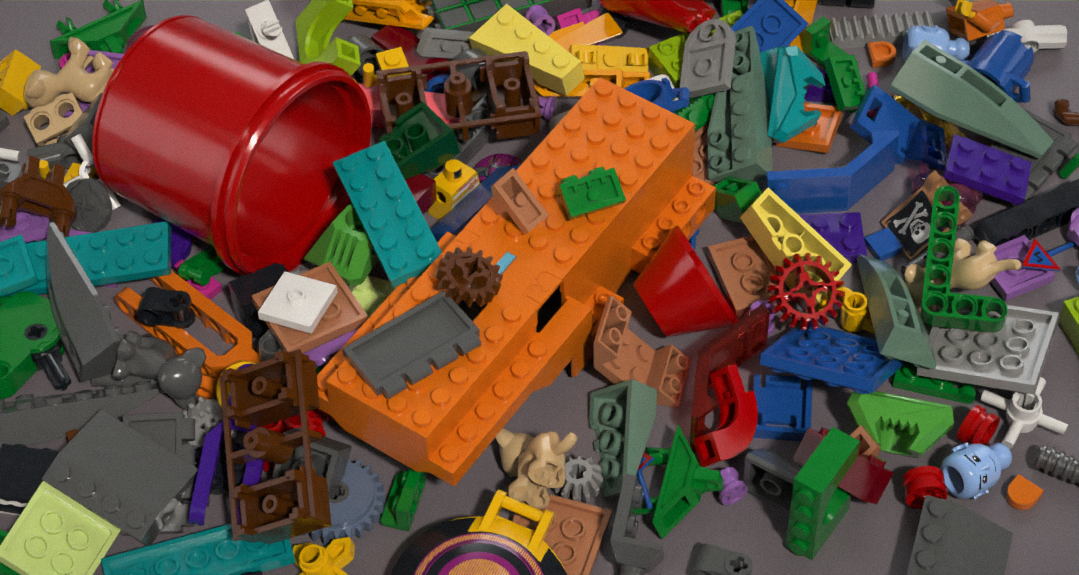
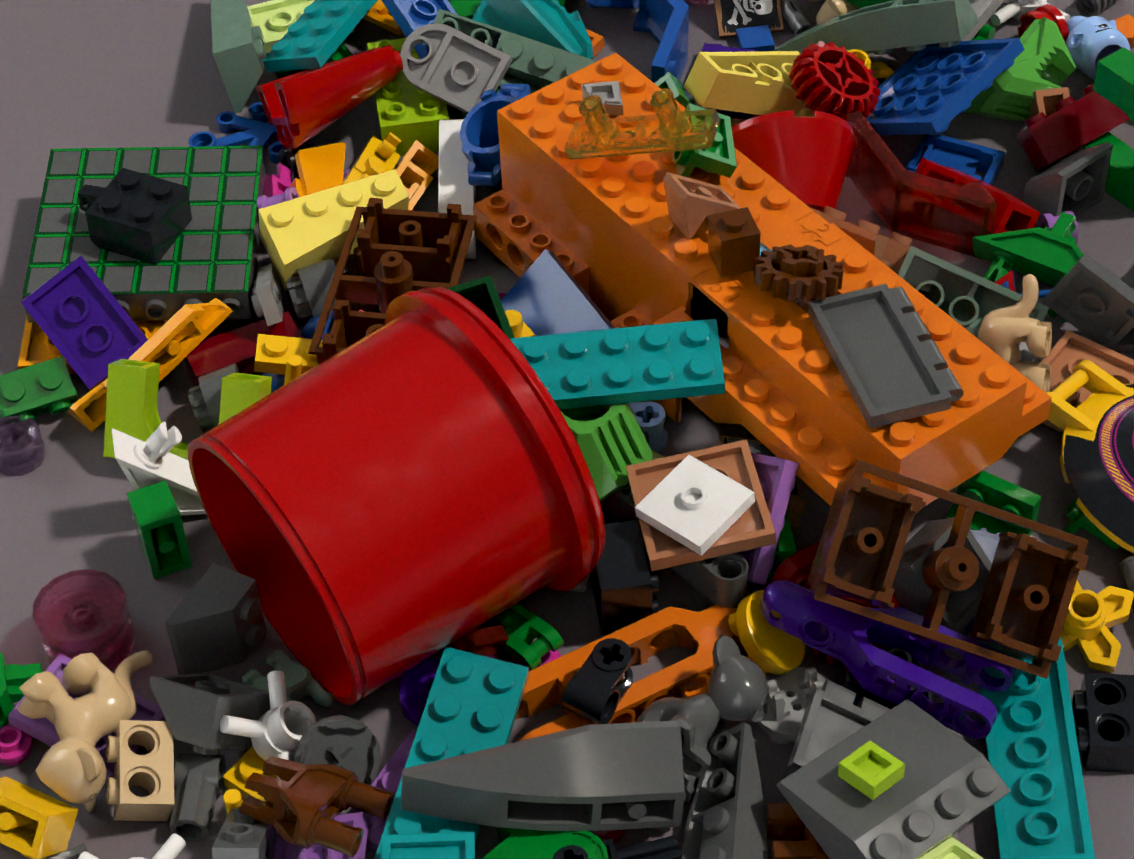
camera: 70 degrees left, 5 degrees down
(111, 448) = (871, 770): none -> lime plate
(185, 244) = (484, 641): none -> clear red plate
(484, 232) = (733, 241): none -> reddish brown brick
(568, 147) = (640, 134): none -> clear yellow plate
(628, 128) = (609, 94): none -> light grey tile

